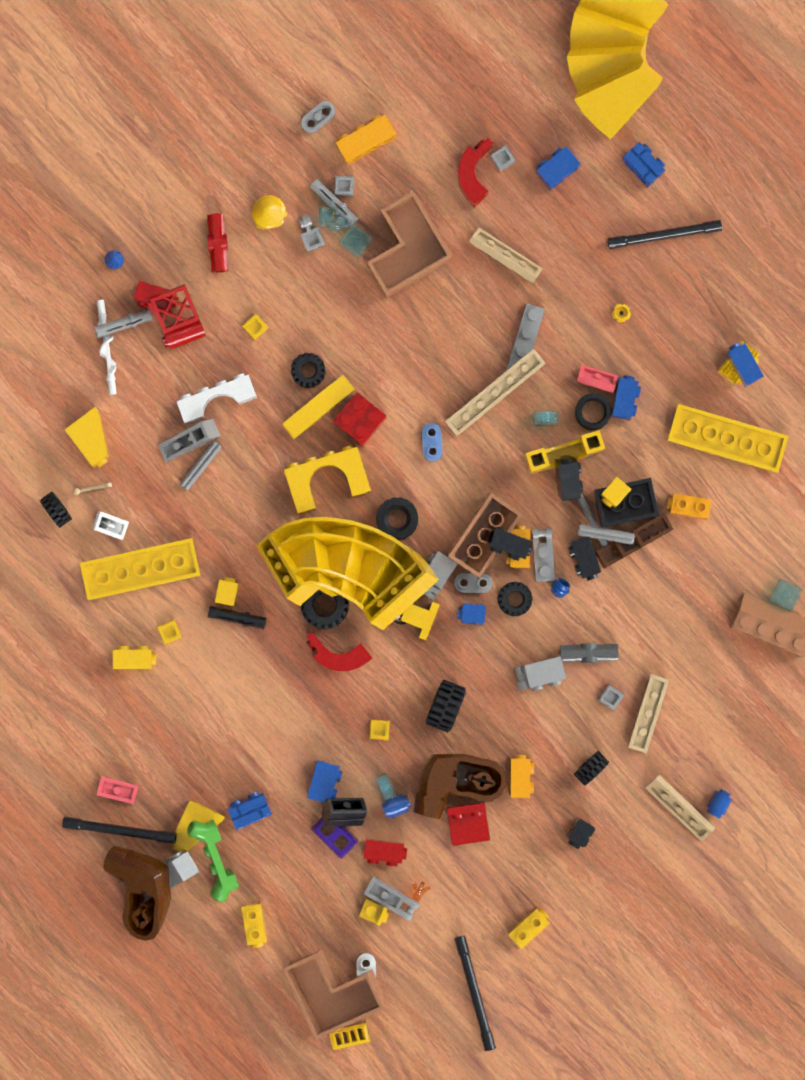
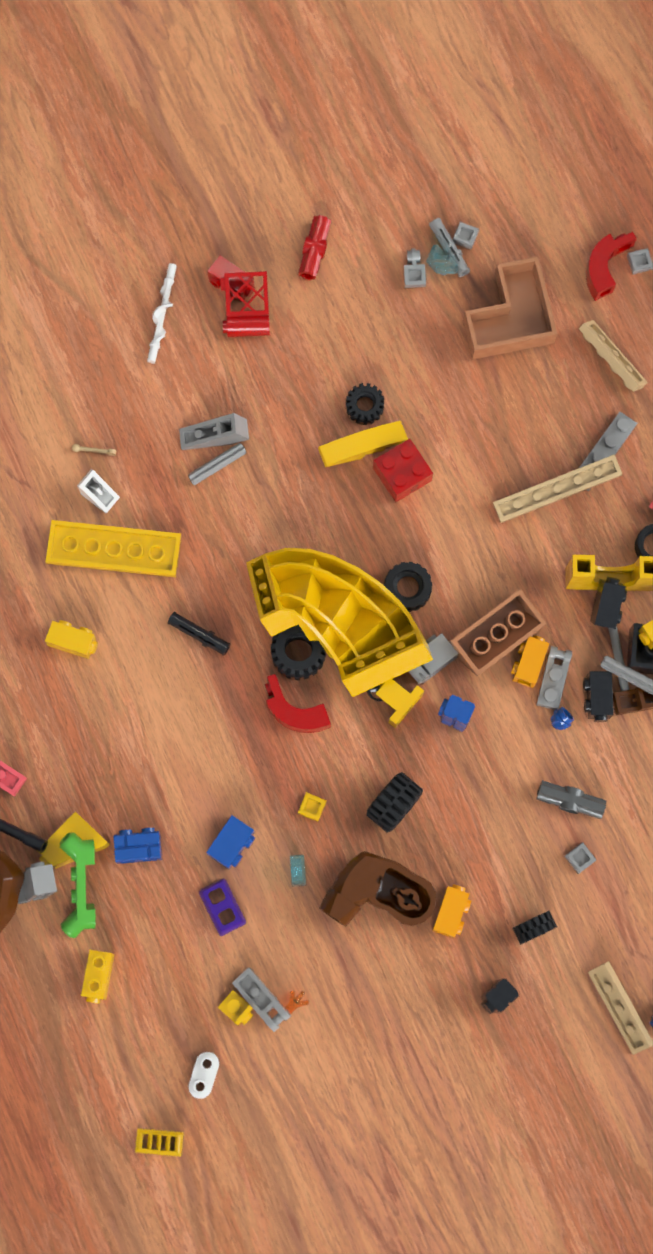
camera: 15 degrees right, 10 degrees down
(55, 509) = (46, 455): black tyre -> none
(90, 437) = (111, 396): yellow slope -> none
(114, 259) = (201, 230): blue plate -> none
(130, 320) = (181, 293): light grey pin -> none
(169, 632) = (120, 625): yellow tile -> none
(193, 406) = (283, 398): white arch -> none
(227, 592) = (197, 603): yellow brick -> none
(255, 327) = (324, 343): yellow tile -> none
(268, 212) = (378, 234): yellow hair -> none
(300, 476) = (374, 509): yellow arch -> none
(317, 117) = (460, 160): light grey plate -> none
(329, 1004) = (145, 1092): nougat piece -> none
(344, 812) = (241, 882): black brick -> none
(356, 241) = (459, 292): clear light blue piece -> none
(365, 139) = (504, 196): light orange brick -> none
(385, 851) = (272, 943): red brick -> none
(396, 806) = (302, 896): blue brick -> none
(432, 442) = (472, 520): medium blue plate -> none
(468, 823) = (376, 943): red bracket -> none
(472, 583) = (466, 685): light grey plate -> none
(486, 1034) = (316, 1192): black piece -> none
(510, 543) = (523, 647): black brick -> none
(515, 587) = (511, 701): black tyre -> none
(529, 927) = (406, 1086): yellow brick -> none
(540, 673) = (510, 803): light grey hinge -> none
(547, 418) = (602, 534): clear light blue piece -> none
(648, 713) = (617, 889): tan plate -> none

